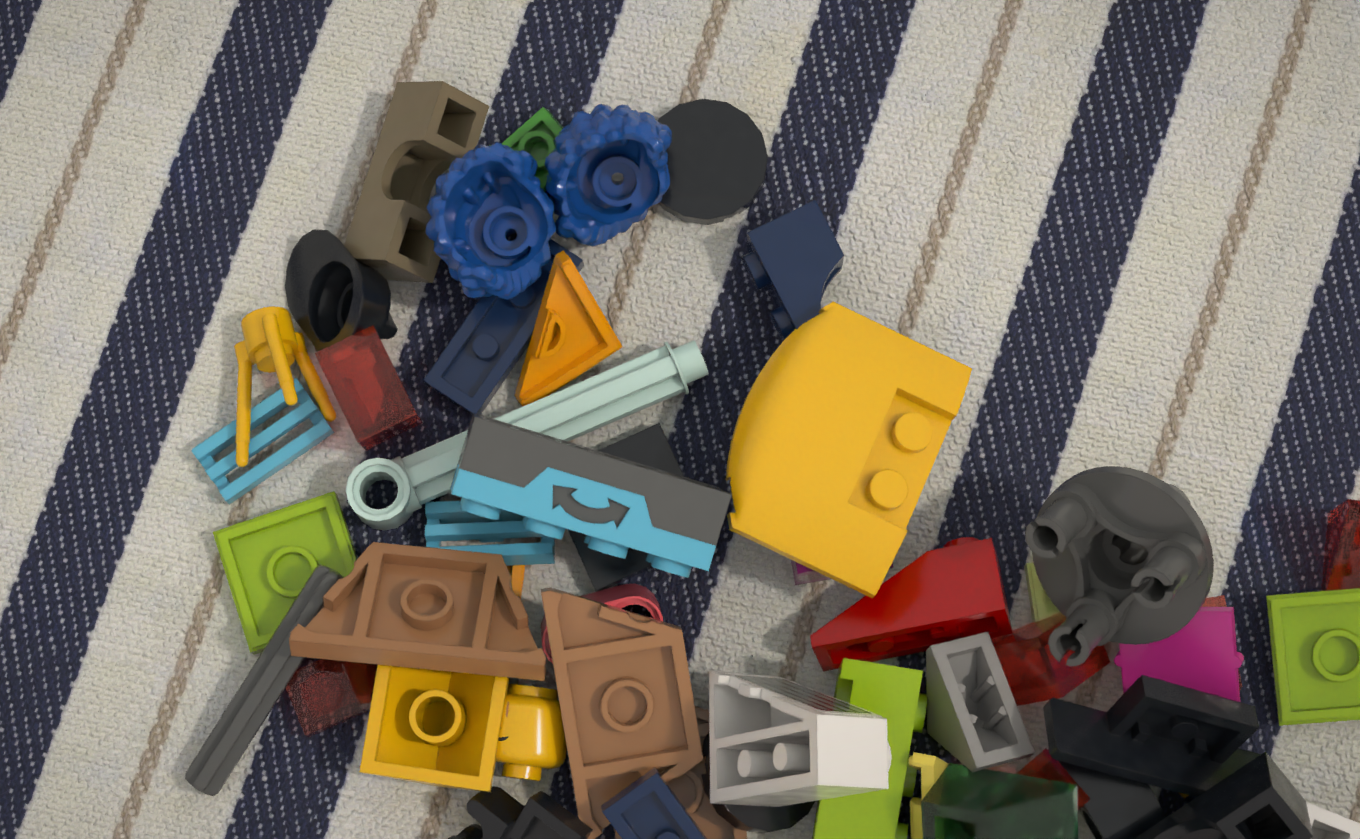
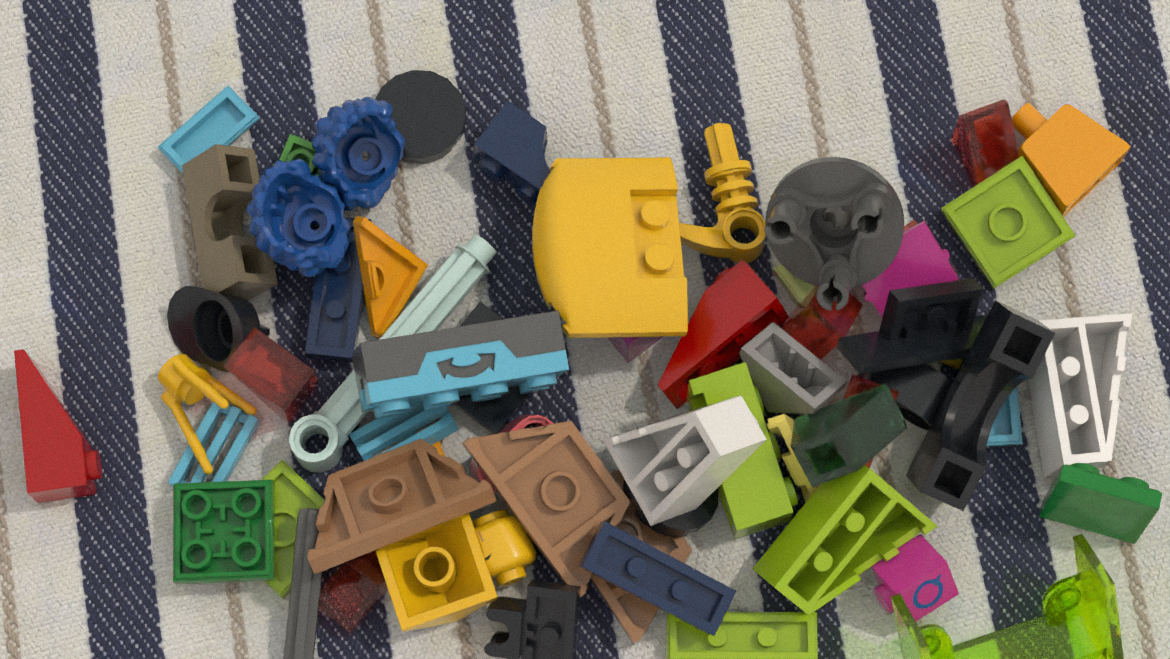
camera: 30 degrees left, 5 degrees down
(85, 338) = (54, 449): none -> red slope
(222, 543) = (224, 532): none -> green tile
(454, 53) = (216, 123): none -> medium azure tile
(1025, 446) = (736, 205): none -> yellow piece

